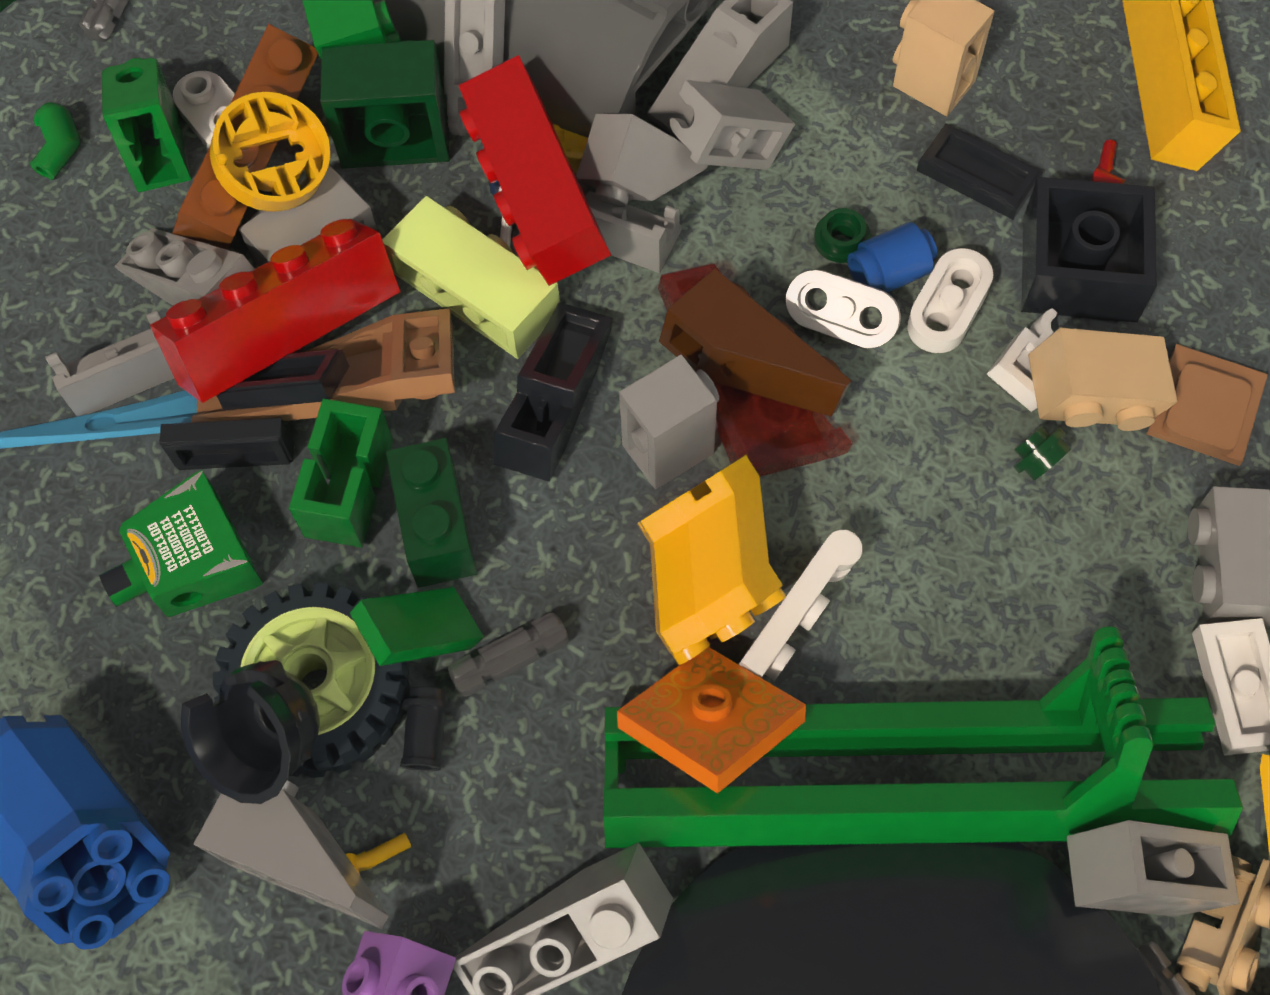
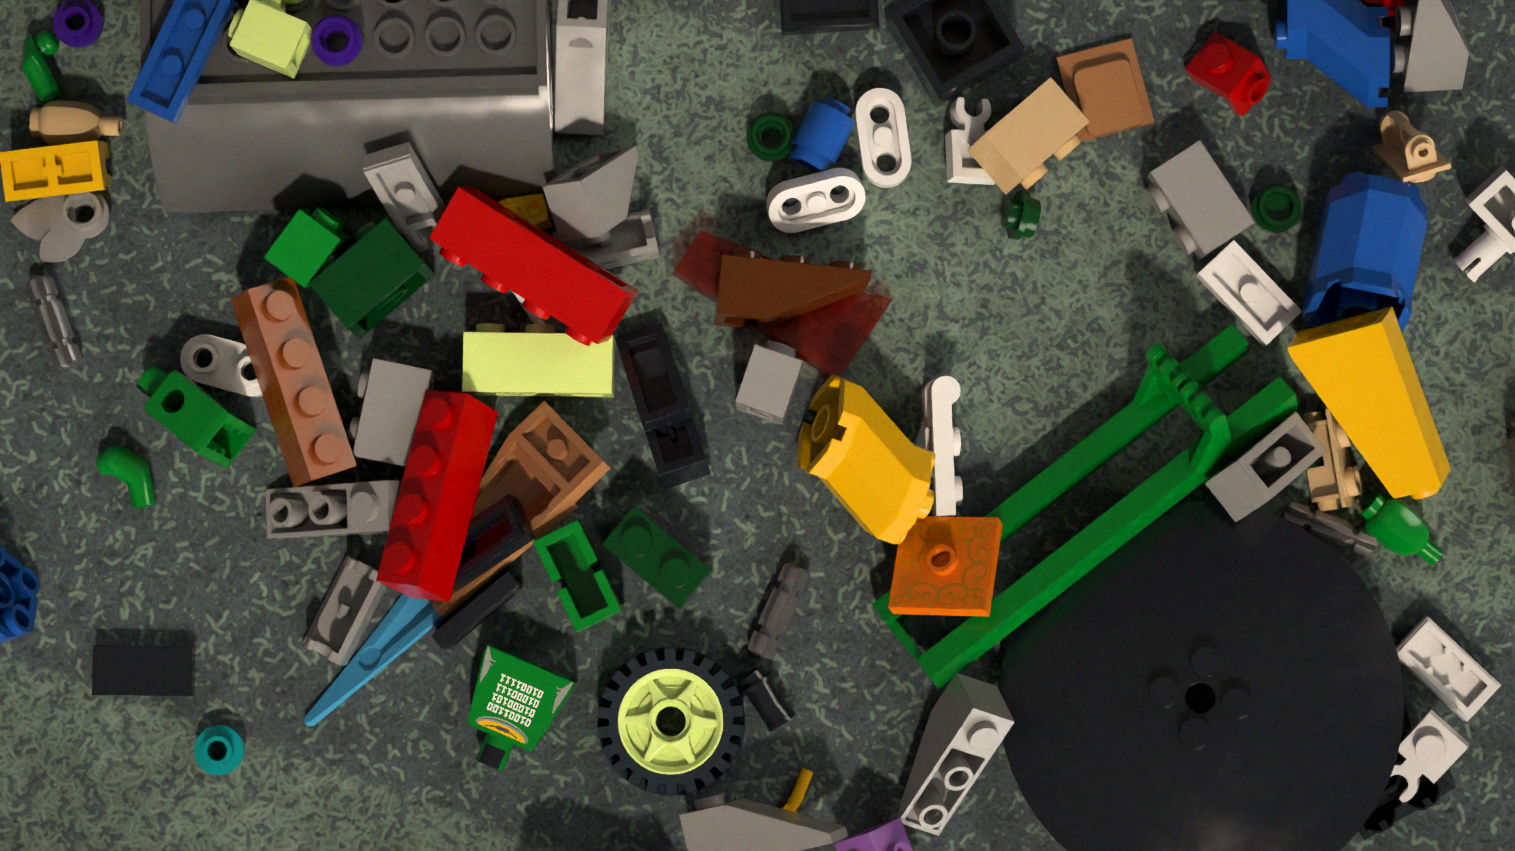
camera: 35 degrees left, 20 degrees up
(253, 732) = (685, 787): black helmet -> none
(262, 127) = (366, 369): yellow piece -> none
(416, 625) = (714, 640): green tile -> none
(731, 126) = (635, 112): light grey hinge -> none

